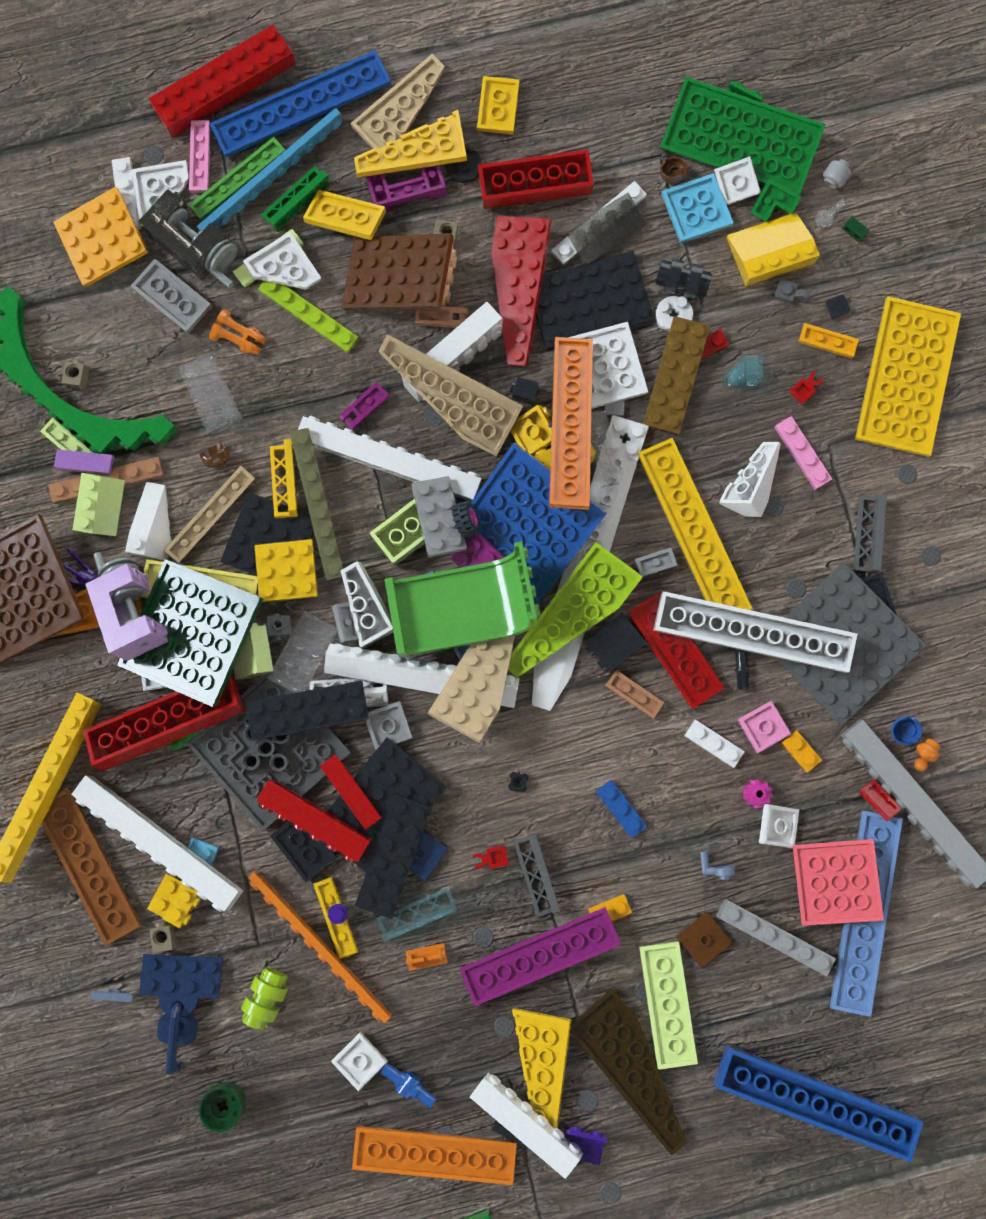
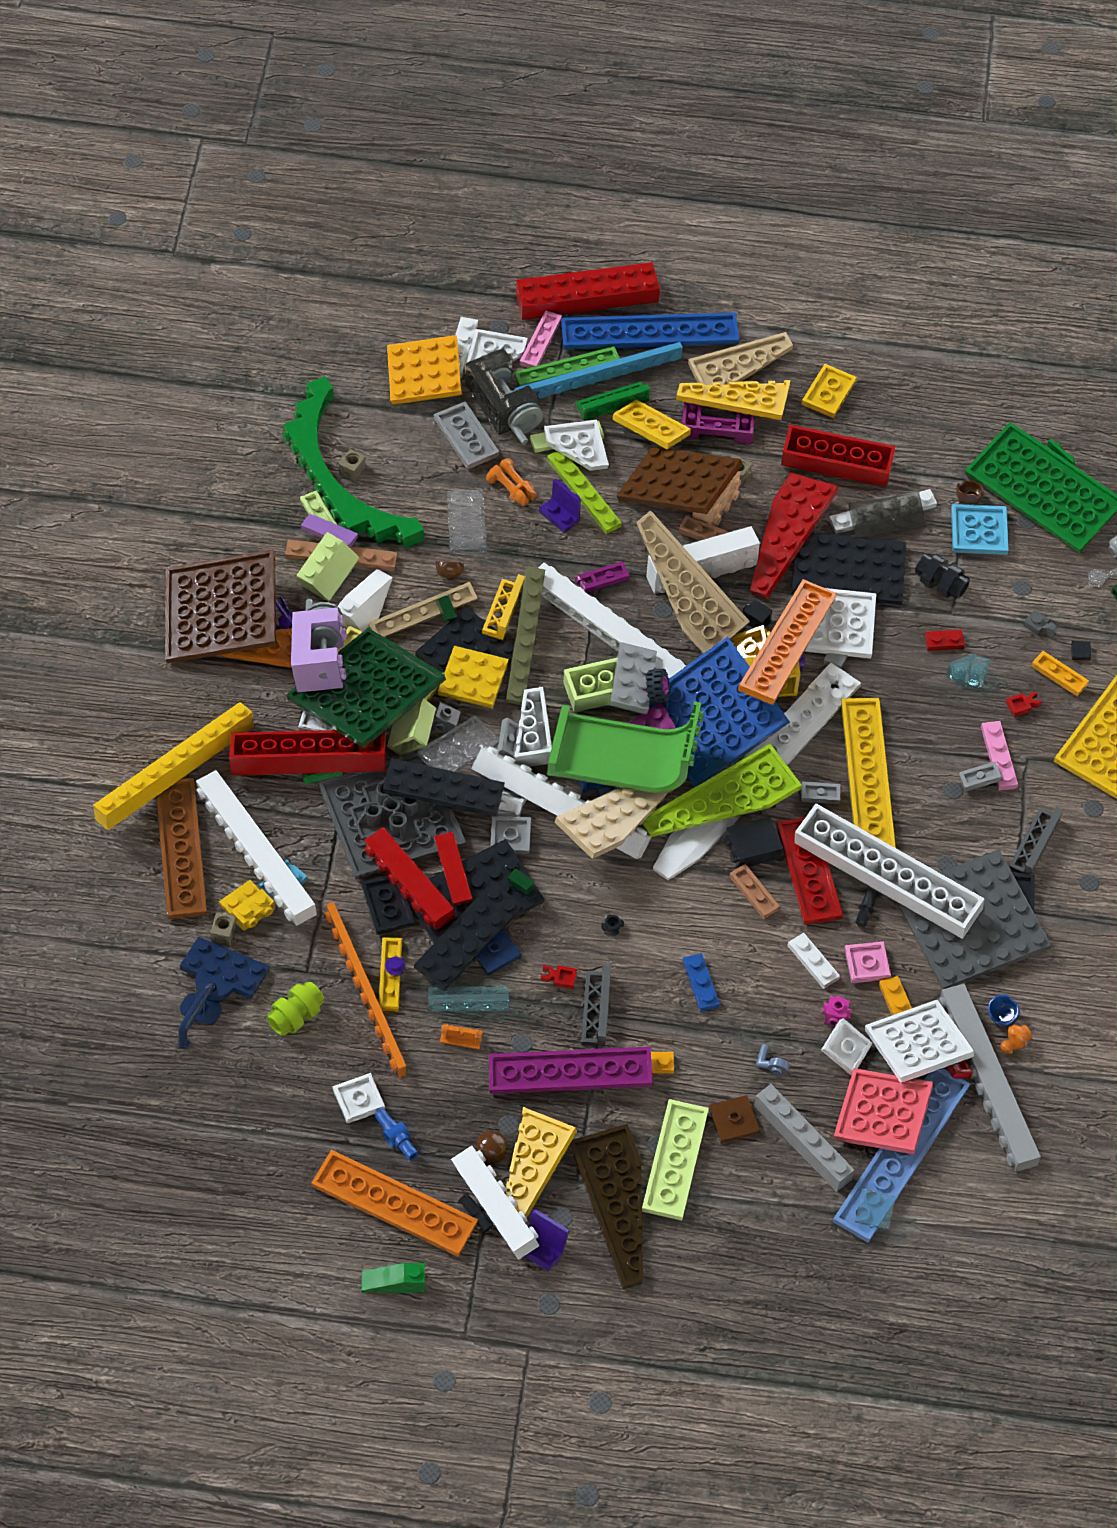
camera: 15 degrees right, 25 degrees down
(111, 995) = (153, 957): sand blue tile -> none
(210, 1108) = (219, 1072): dark green wheel -> none
(230, 505) = (446, 608): none -> dark green piece
(295, 345) = (563, 507): none -> dark purple bracket
(420, 783) = (521, 882): none -> dark green piece
(466, 170) = (776, 429): black tile -> none
(498, 1059) = (492, 1146): none -> reddish brown hair
(604, 451) = (809, 682): clear plate -> none
(670, 304) = (925, 596): white plate -> none
(676, 375) = (903, 650): pearl gold plate -> none
(737, 181) = (1025, 519): white plate -> none
(753, 486) = (942, 762): white wedge -> none
(771, 196) = (1054, 542): green plate -> none
(772, 248) = (1037, 586): yellow slope -> none
(795, 485) = (980, 776): none -> light grey plate
(818, 1103) = (786, 1291): blue brick -> none
(844, 797) = (919, 1041): none -> white plate
(865, 985) = (875, 1209): none -> clear light blue piece

